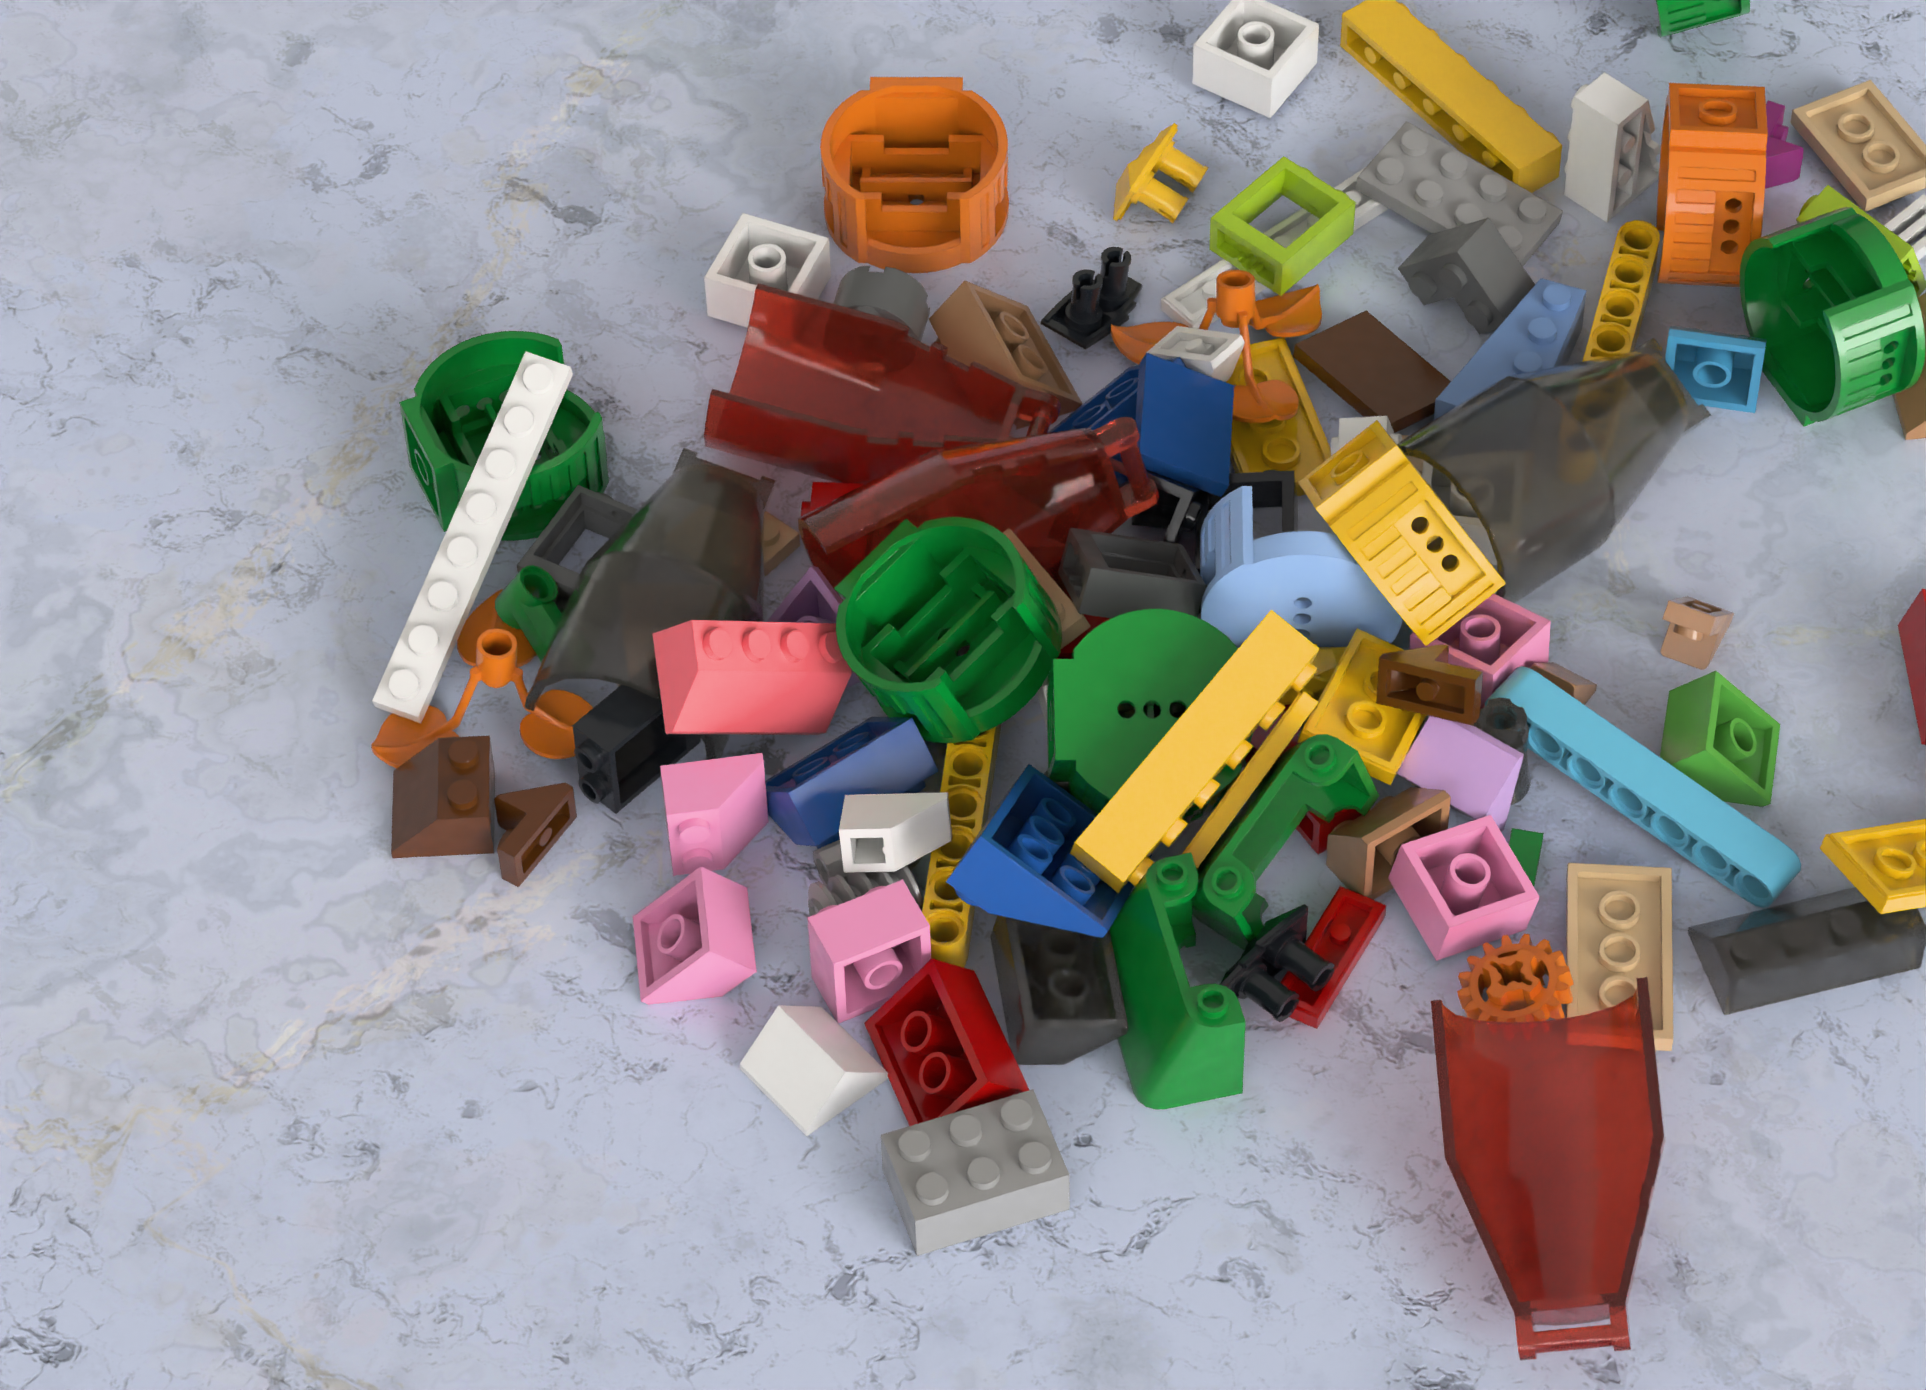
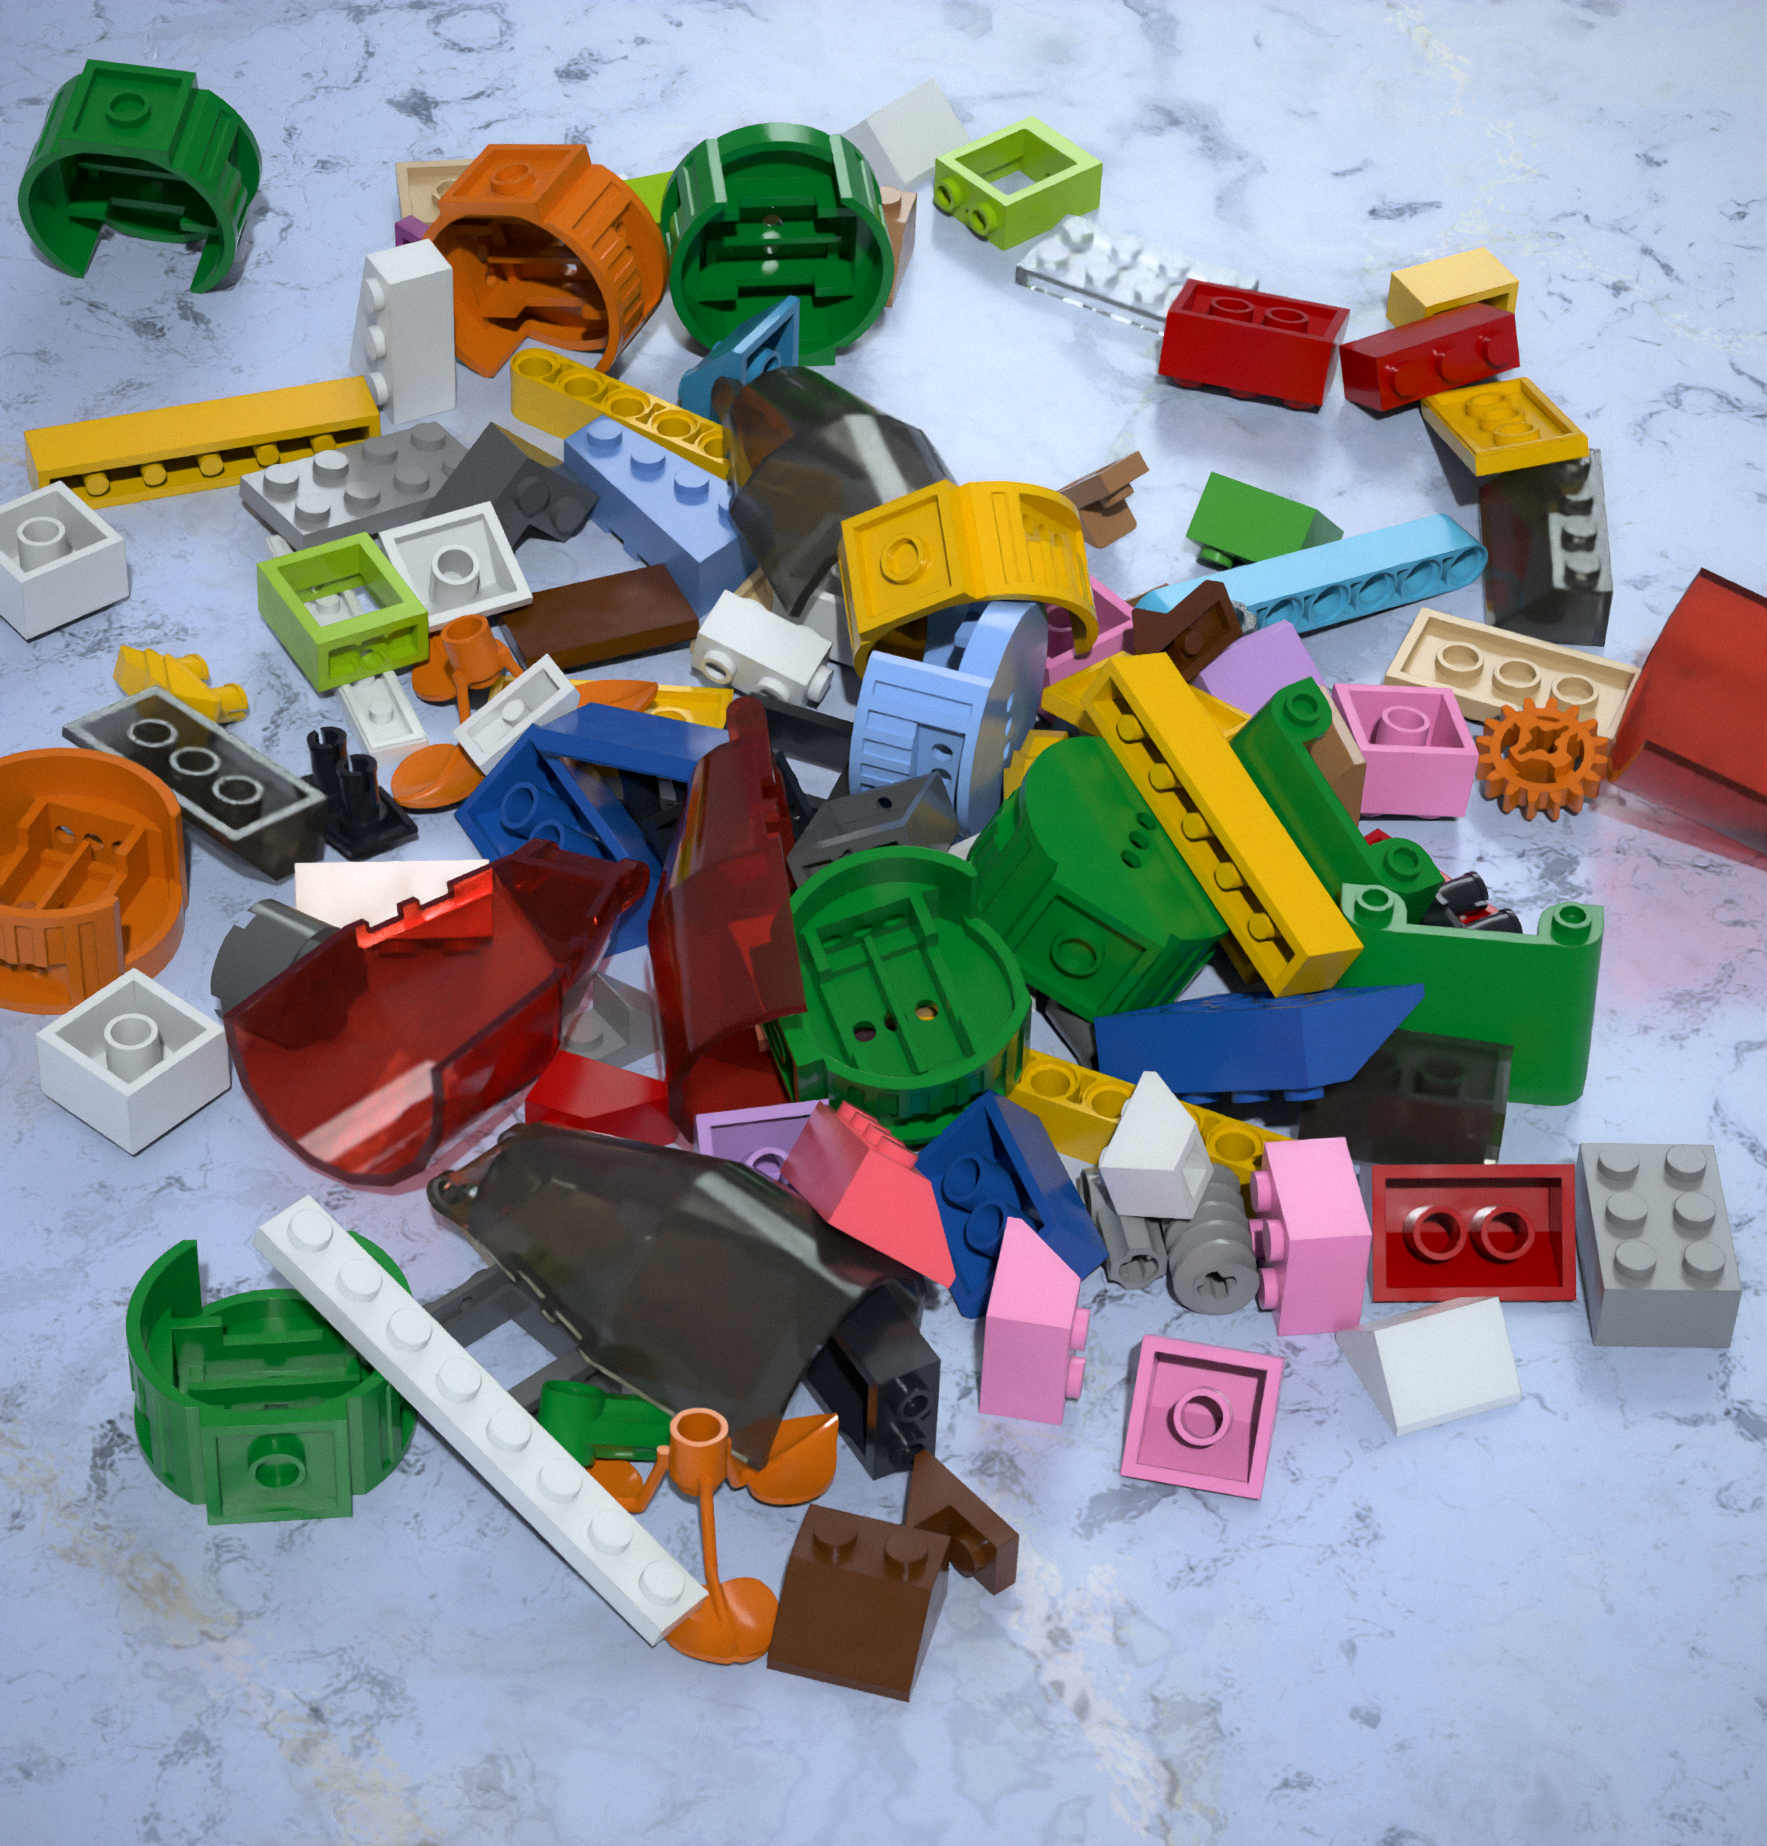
camera: 75 degrees left, 10 degrees down
(1044, 212) = (216, 778): none -> clear smoke slope
(1362, 271) = (457, 564): none -> white slope

